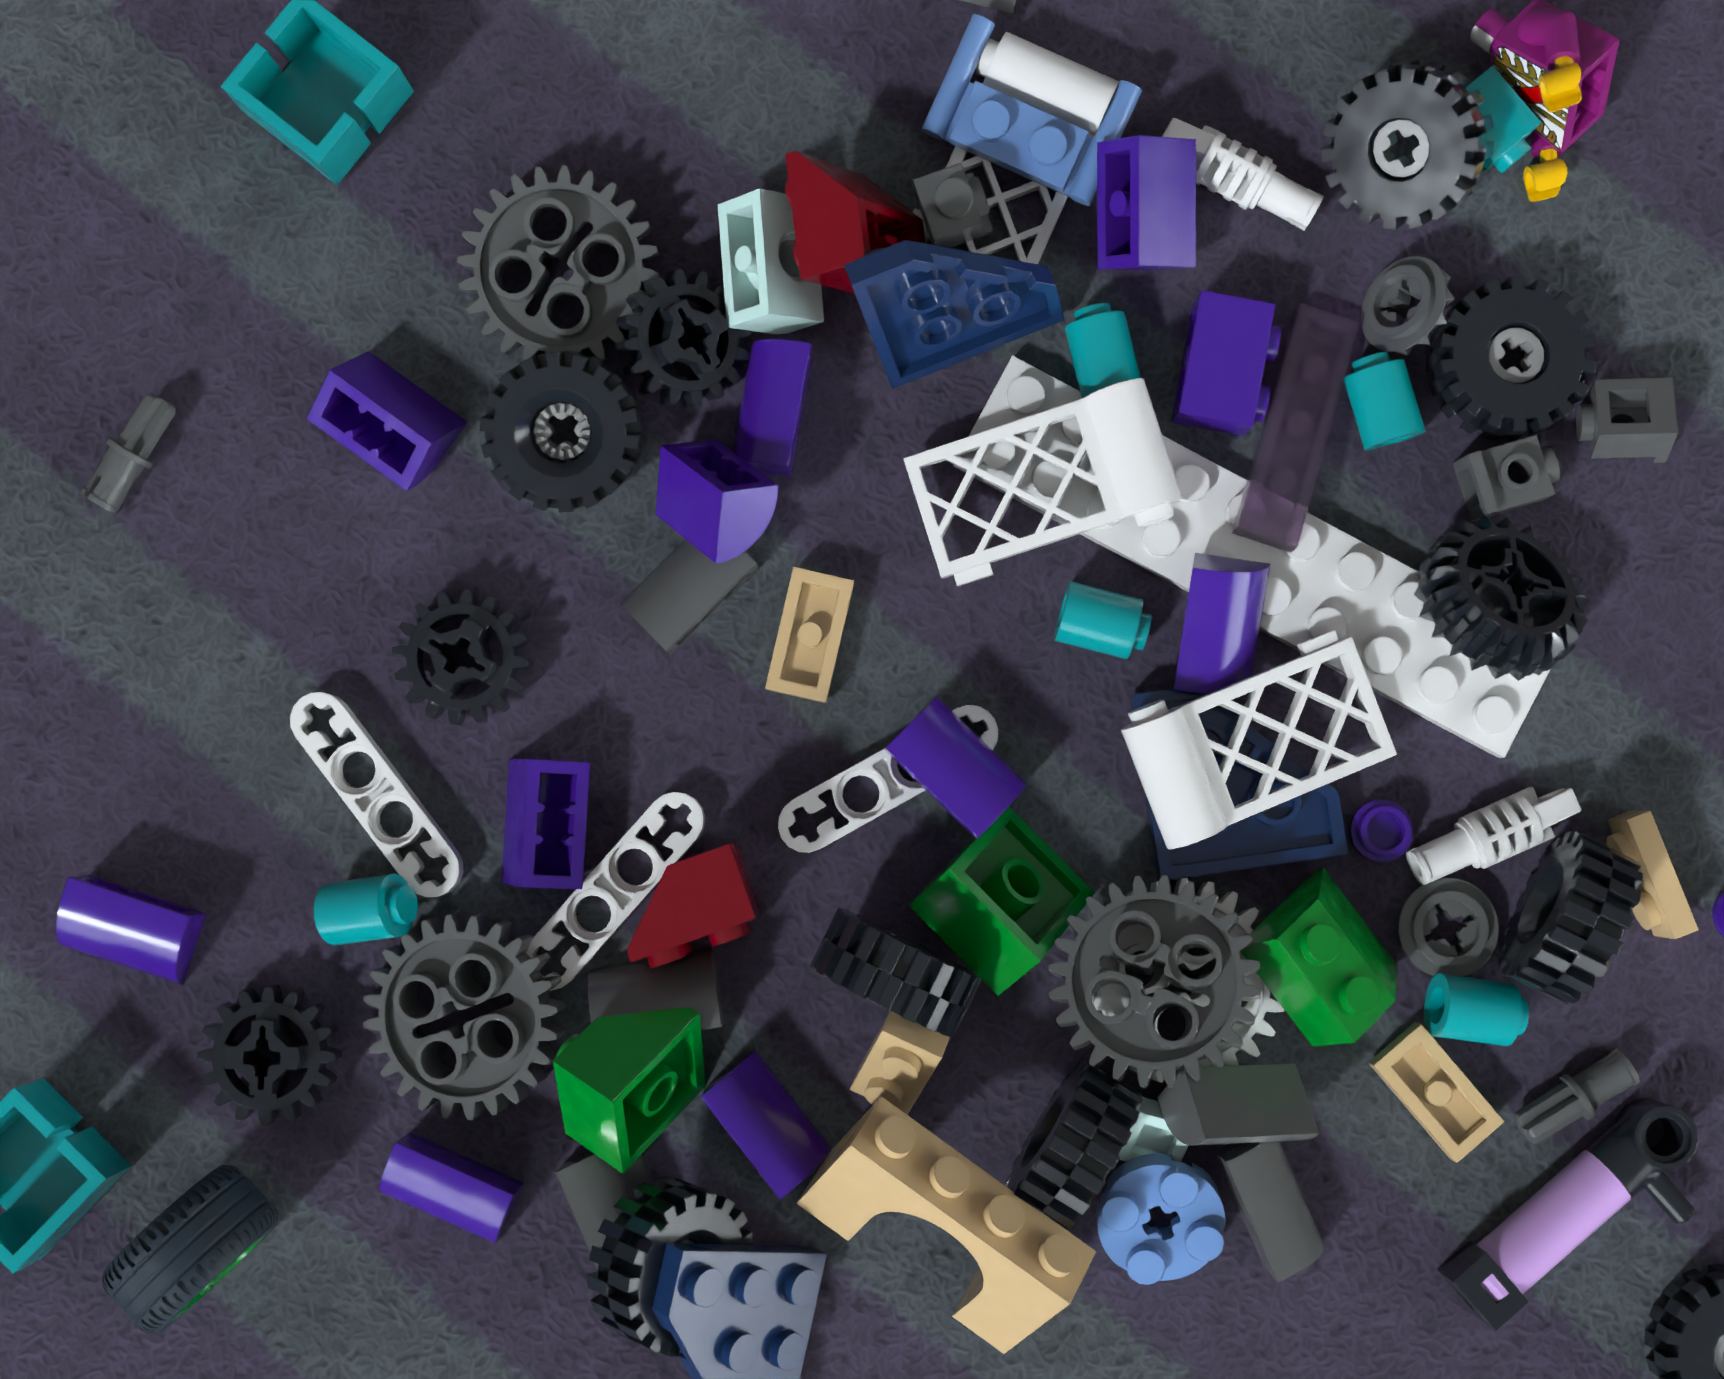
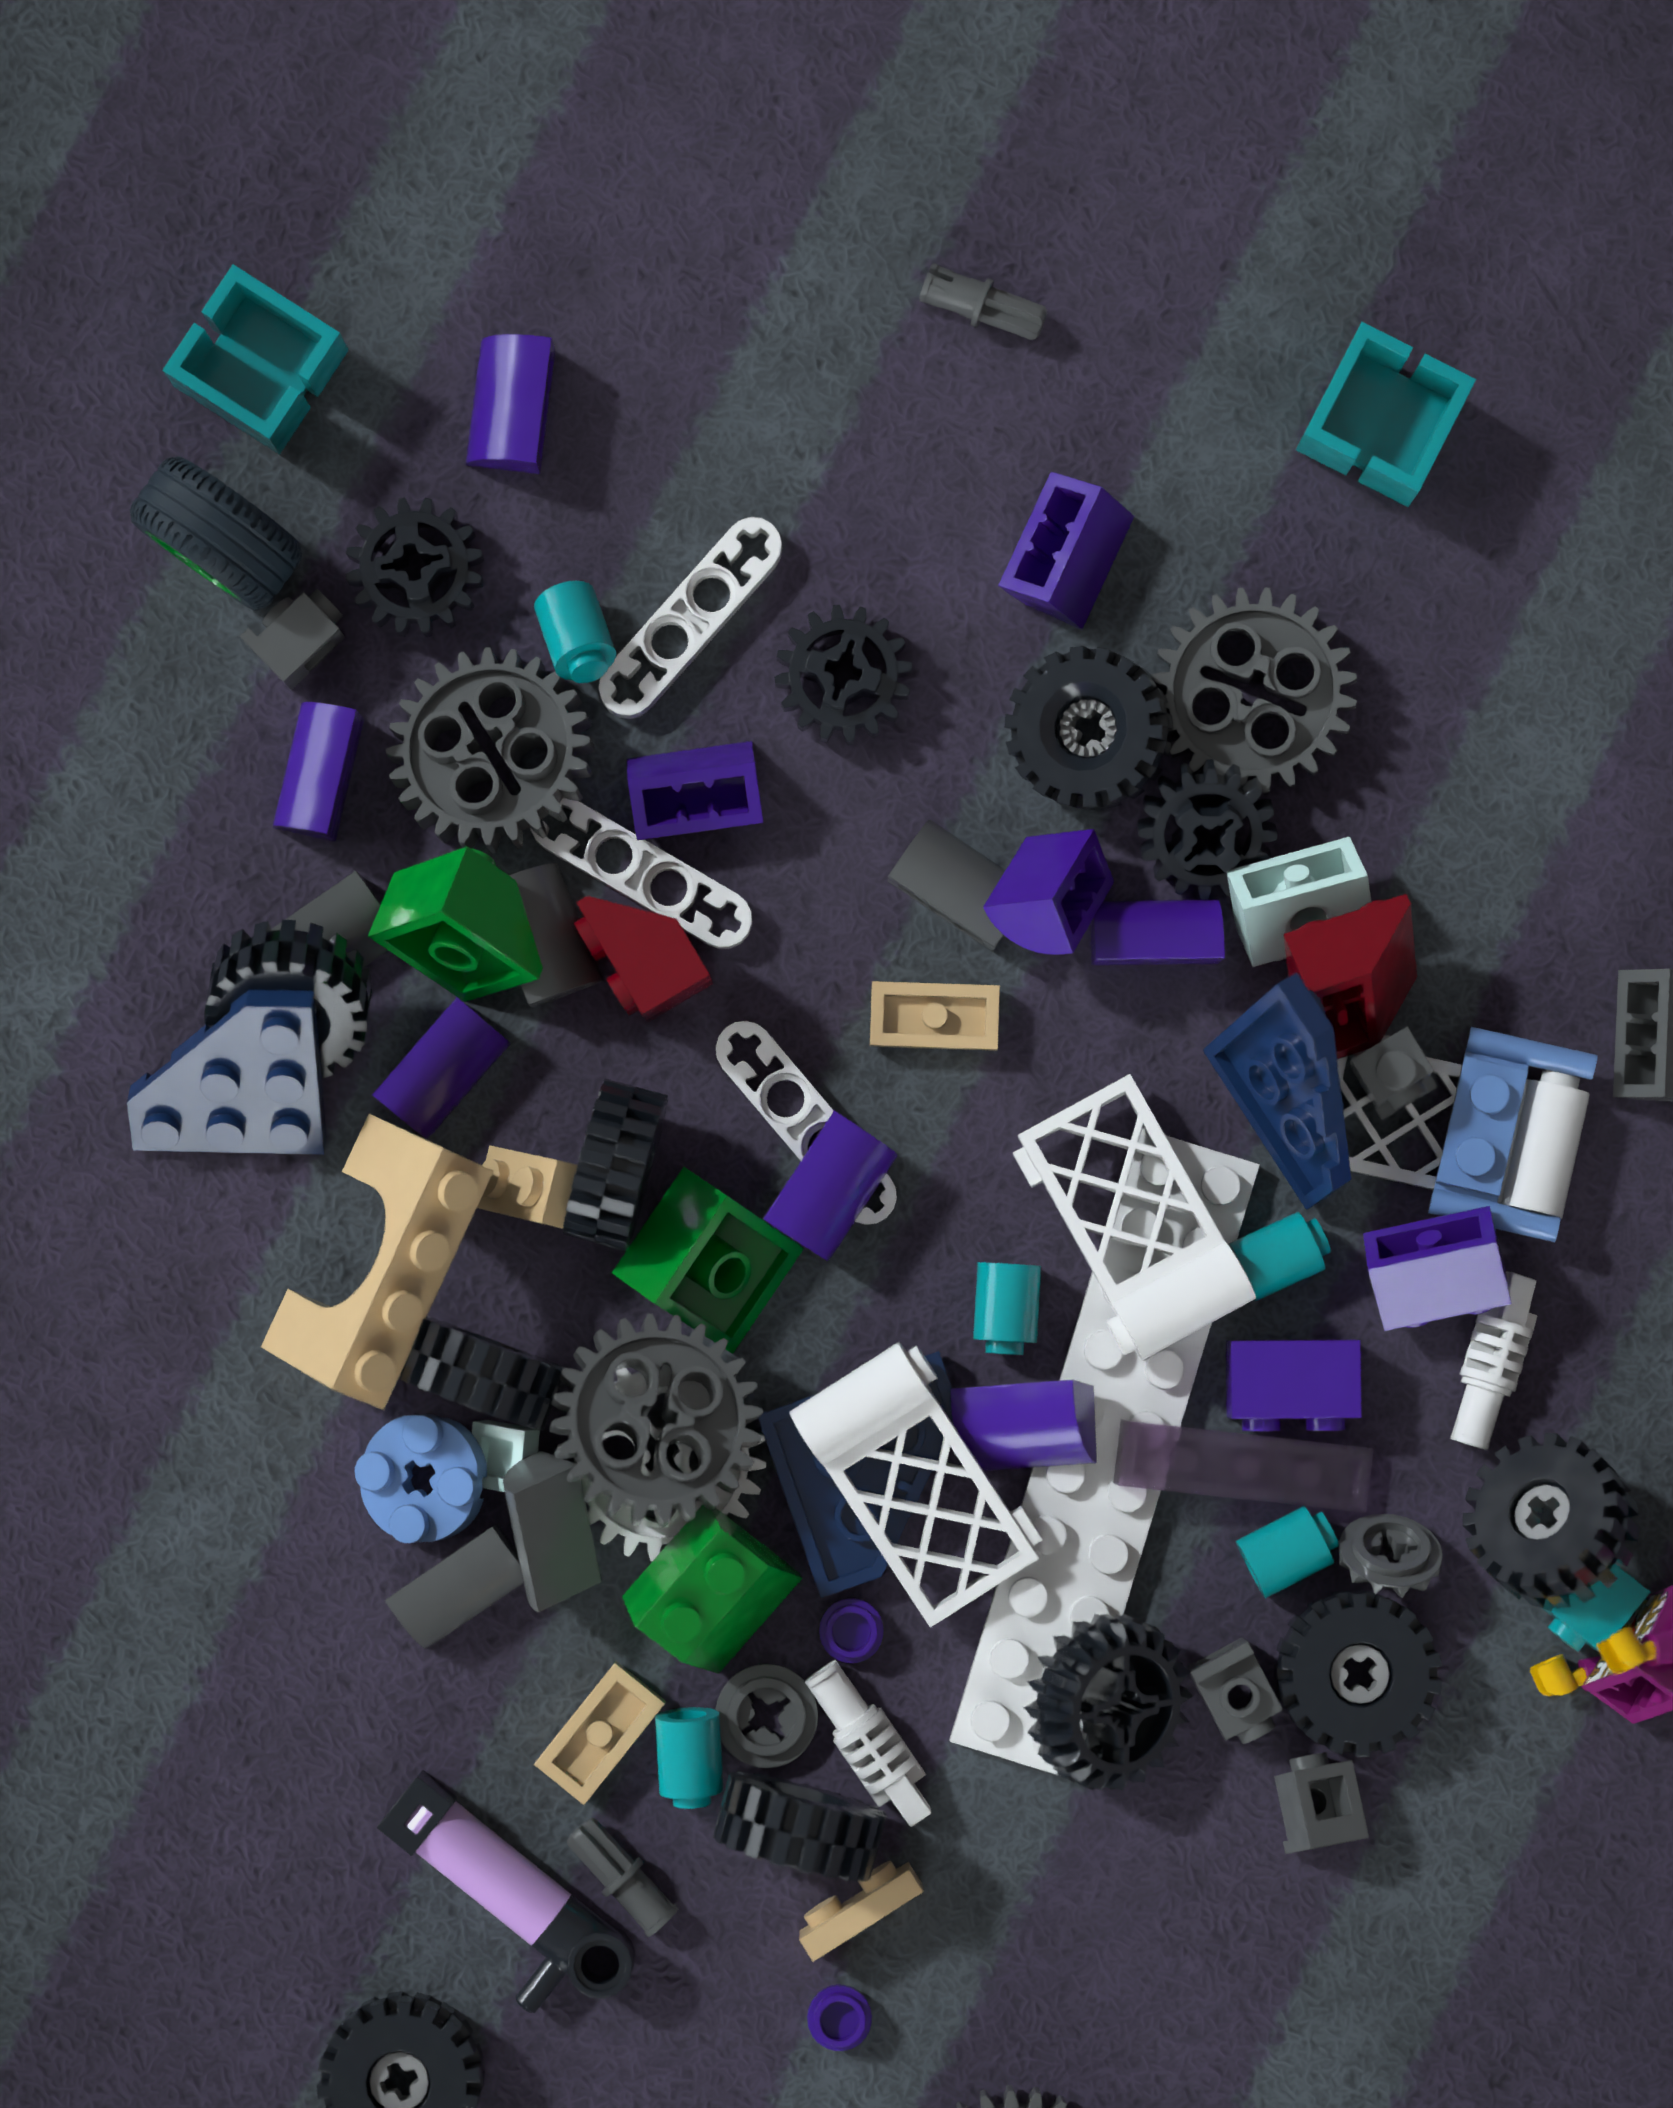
camera: 80 degrees right, 0 degrees up
(313, 1184) = (297, 636): none -> dark grey brick

